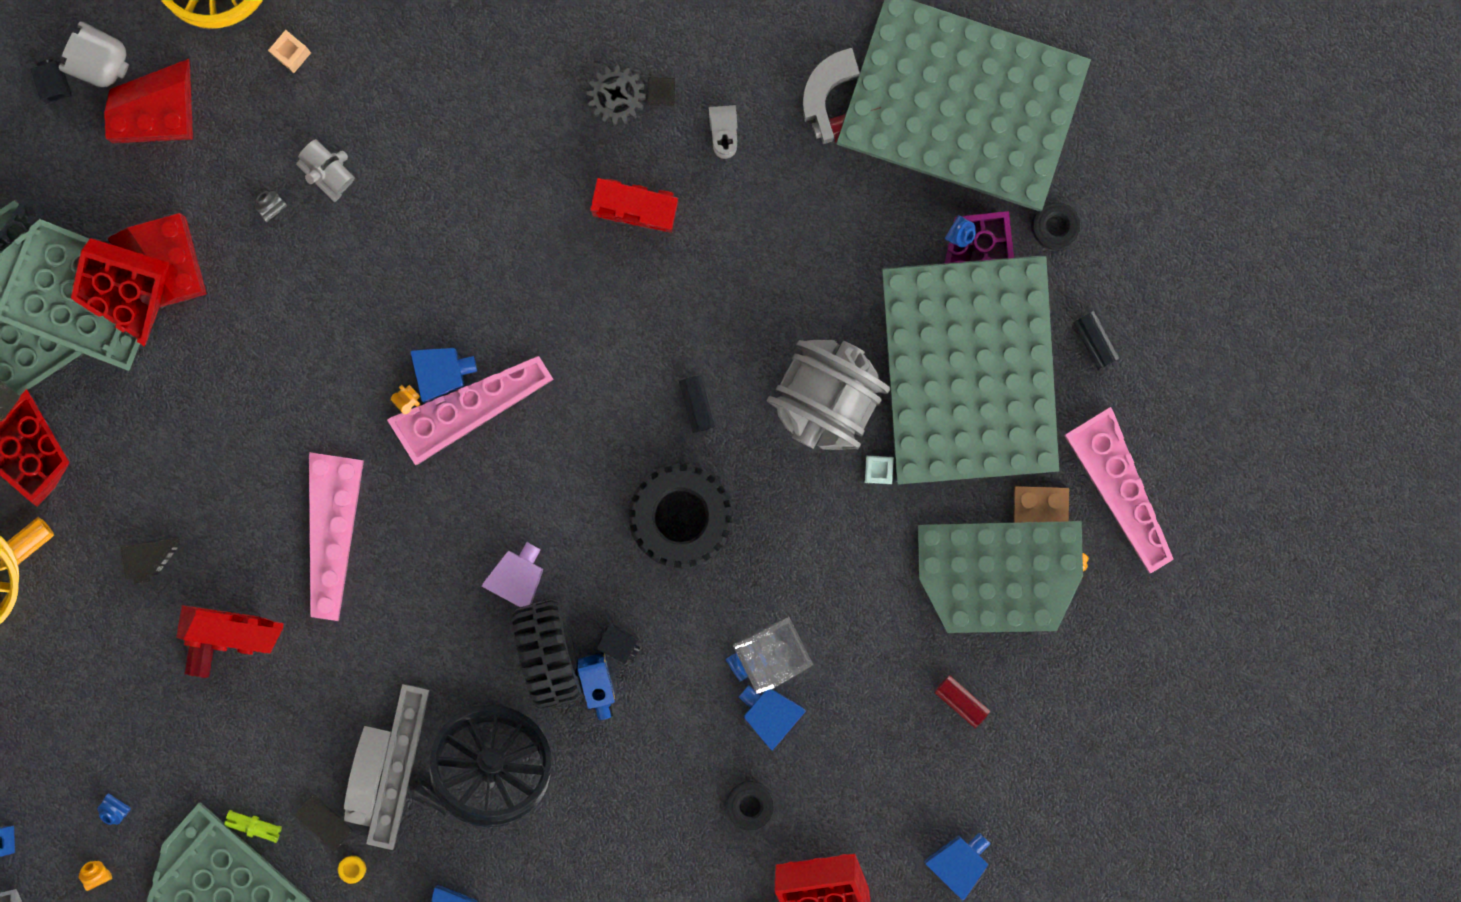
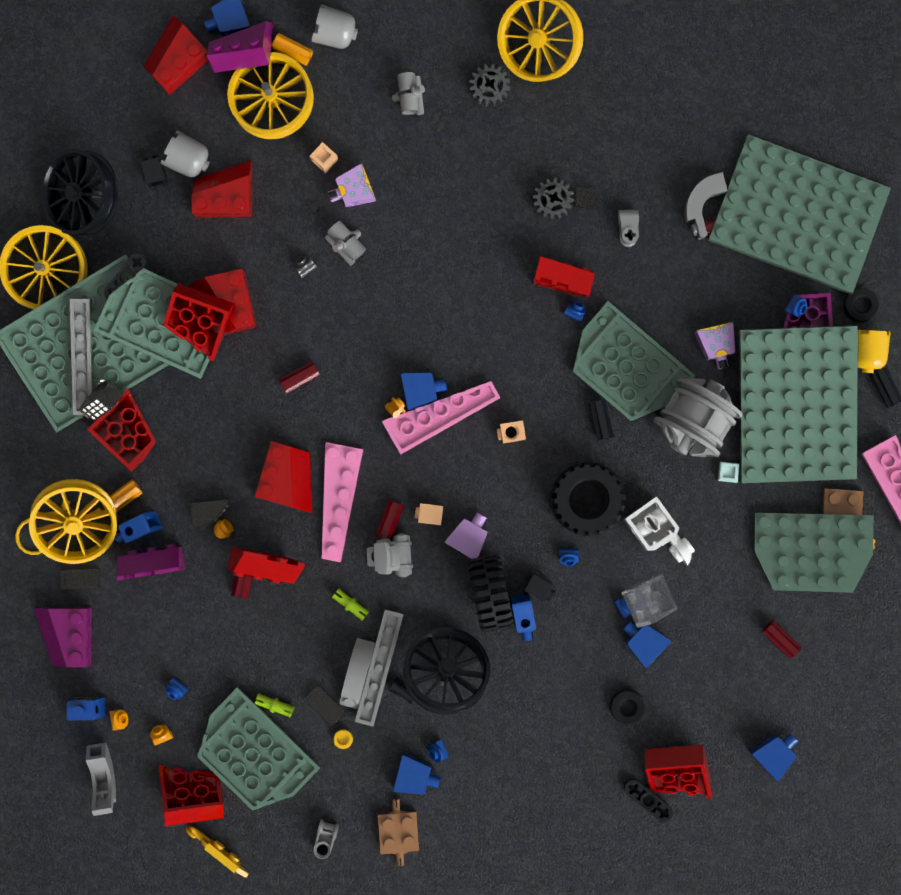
camera: 10 degrees right, 0 degrees up
(34, 856) = (119, 719): none -> light orange plate
(50, 584) = (138, 527): none -> blue torso
(68, 633) = (150, 562): none -> magenta wedge
(170, 581) = (223, 529): none -> light orange plate
(256, 505) = (286, 477): none -> red wedge
(268, 362) = (299, 377): none -> dark red axle
(333, 92) = (353, 188): none -> lavender torso
(354, 679) = (350, 604): none -> lime pin
(404, 559) = (389, 520): none -> dark red axle
(408, 608) = (392, 555): none -> light grey piece
(459, 547) = (429, 514): none -> light nougat brick
(485, 881) = (438, 751): none -> blue plate
(582, 431) = (520, 432): none -> light nougat brick
(654, 251) = (575, 310): none -> blue plate
(659, 598) = (569, 556): none -> blue plate
(728, 324) = (626, 364): none -> sand green plate
(778, 552) = (656, 527): none -> white brick
(855, 289) = (717, 343): none -> lavender torso
(1070, 288) = (872, 349): none -> yellow cylinder

